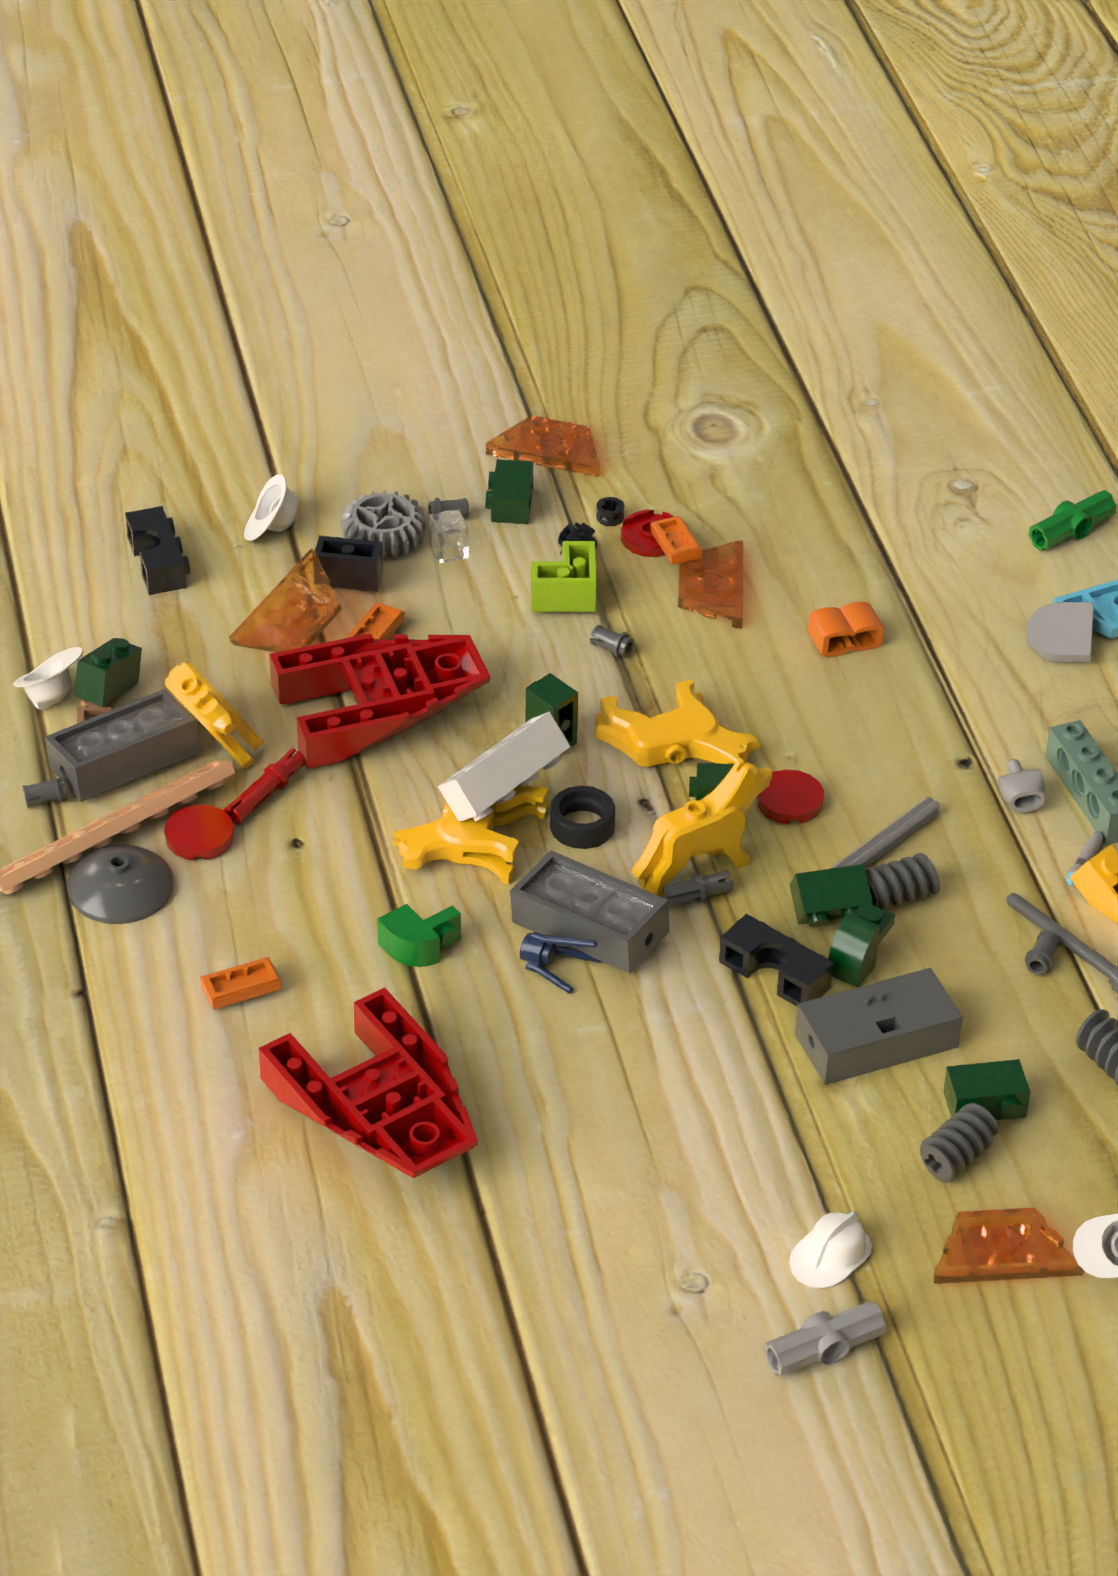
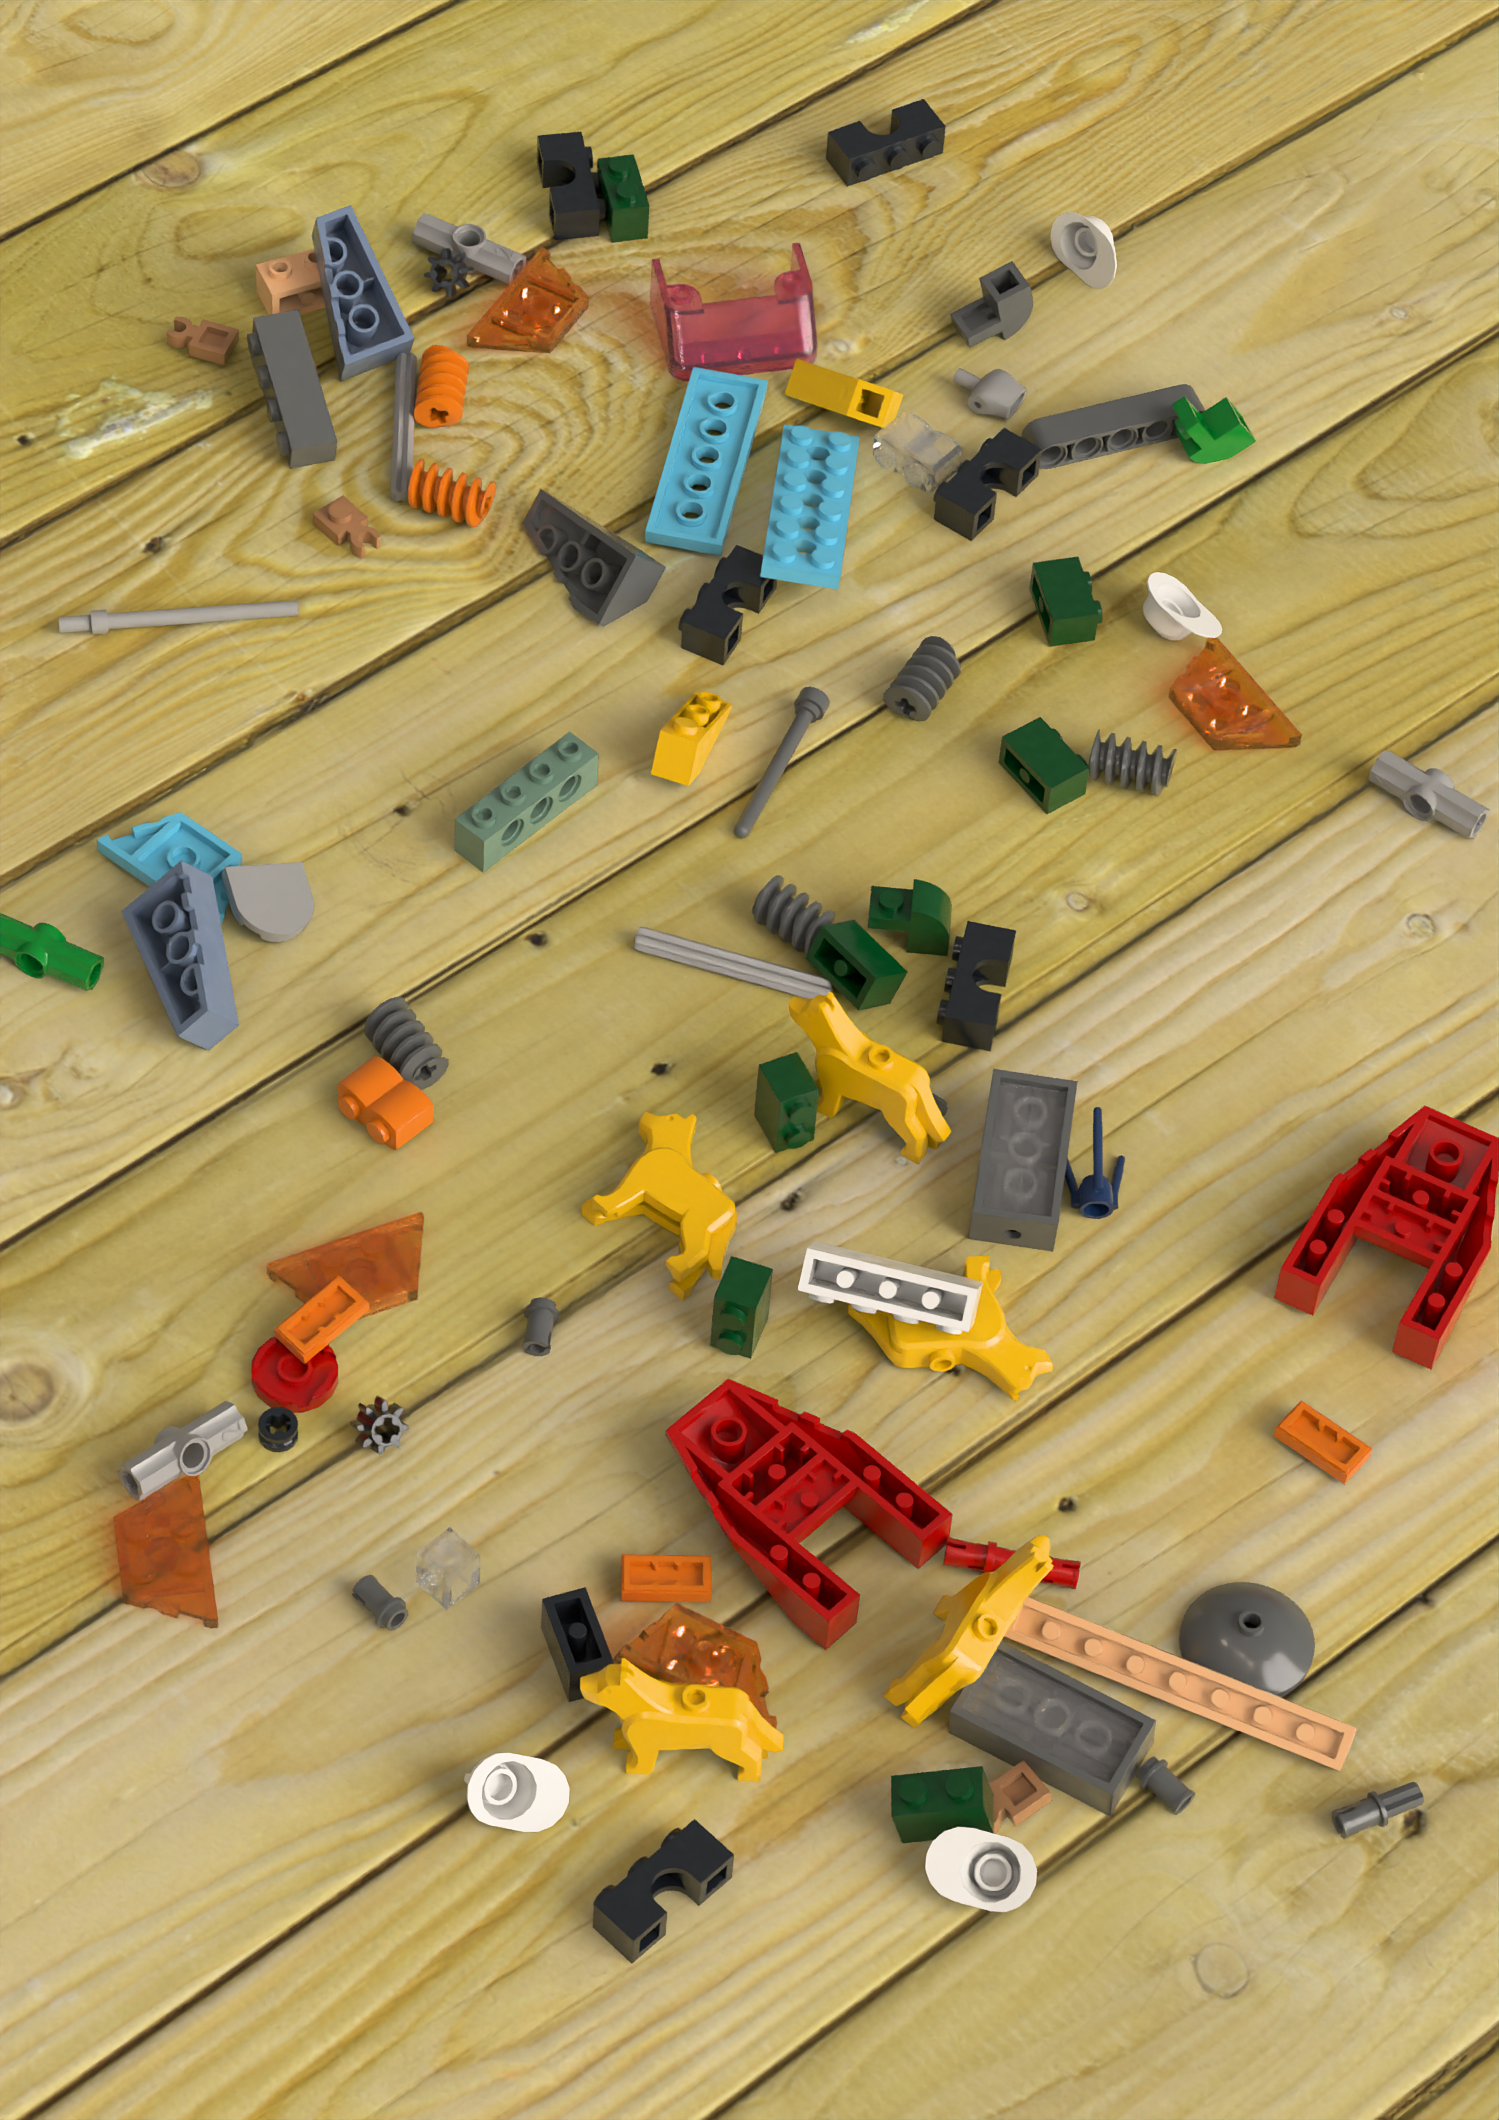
camera: 120 degrees left, 10 degrees up
(199, 832) = (1122, 1596): red tile -> none
(245, 562) = (681, 1716): none -> yellow animal
(385, 519) = (483, 1642): light grey gear -> none
(417, 940) = (1154, 1303): green brick -> none
(510, 491) = (309, 1542): dark green brick -> none
(566, 583) = (470, 1389): lime brick -> none
(580, 834) = (868, 1210): black tyre -> none
(615, 459) = (182, 1450): none -> light grey piece
(791, 797) = (702, 1068): red tile -> none
(830, 1250) = (1313, 830): white piece -> none
(878, 1026) = (1016, 871): dark grey brick -> none
(891, 647) = (405, 1043): none -> dark grey piece
(1017, 565) = (185, 953): none -> sand blue wedge
(1022, 788) = (566, 862): light grey piece -> none
(1040, 959) = (813, 780): dark grey pin -> none
(1089, 851) = (625, 788): light grey piece -> none

